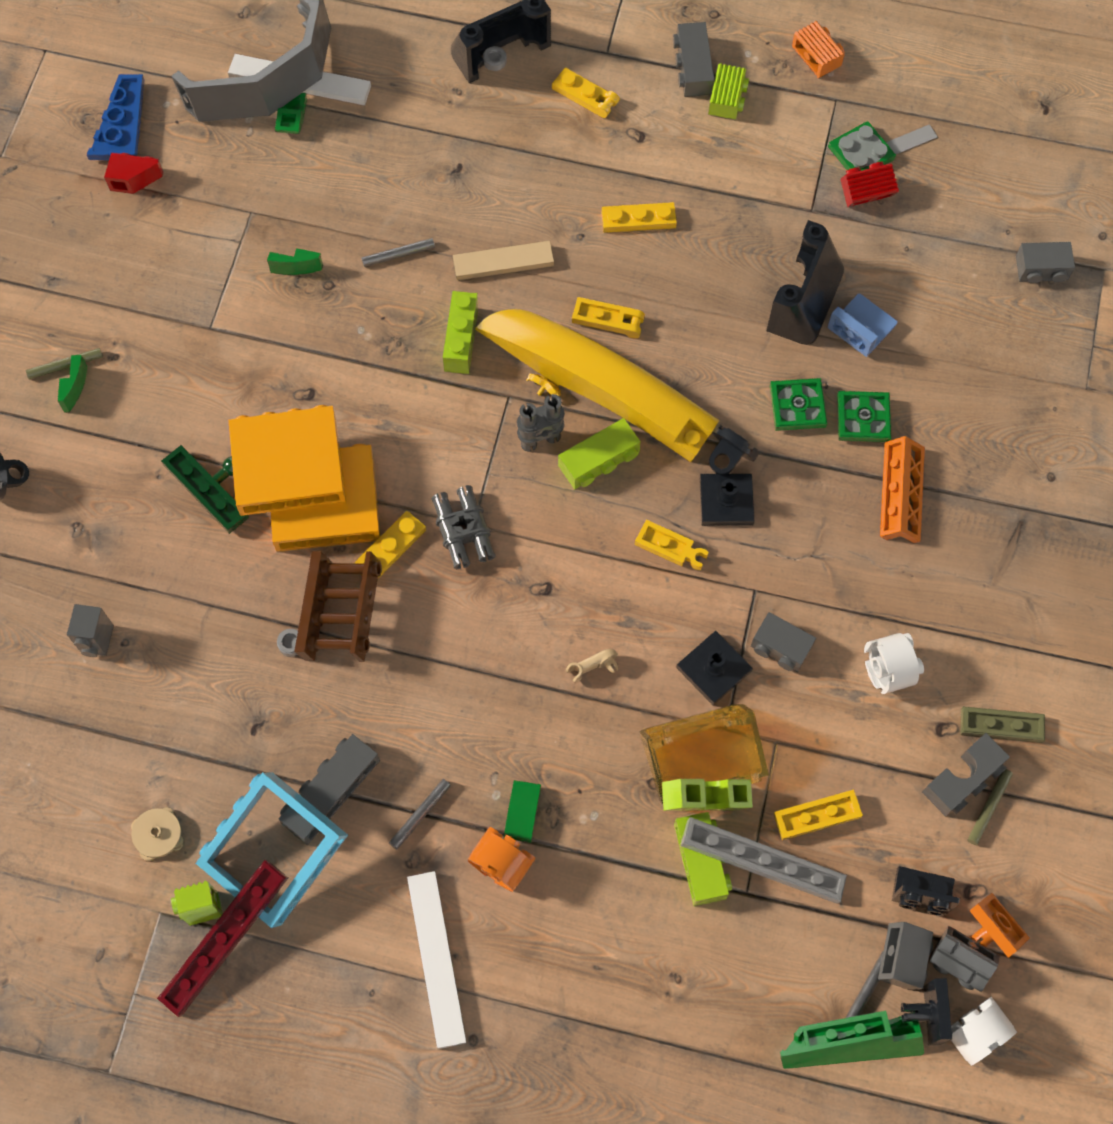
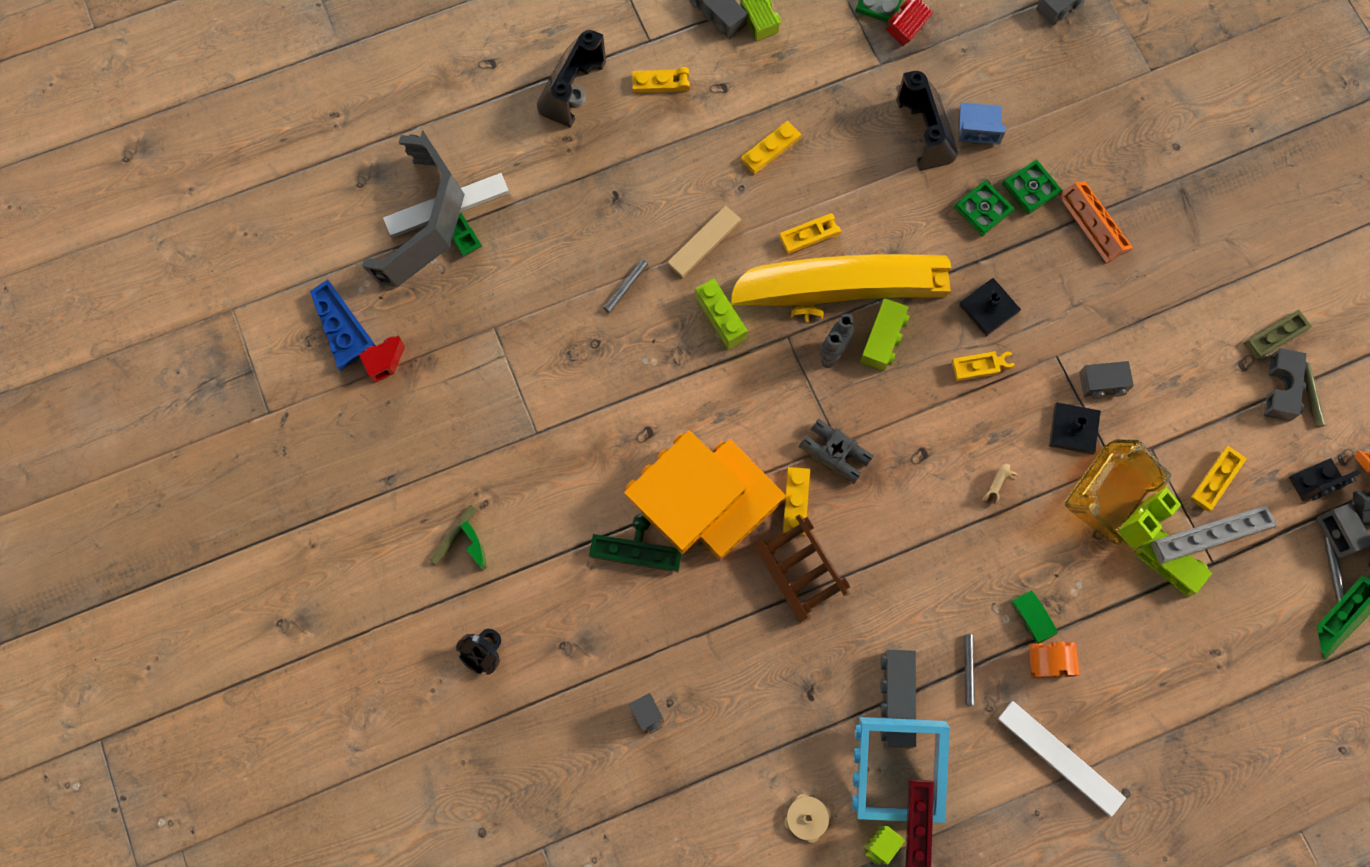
camera: 35 degrees left, 5 degrees up
(286, 642) = (785, 617): light grey tile -> none
(302, 262) = (567, 339): green slope -> none
(733, 447) = (973, 268): black tile -> none
(893, 662) = (1188, 343): white brick -> none

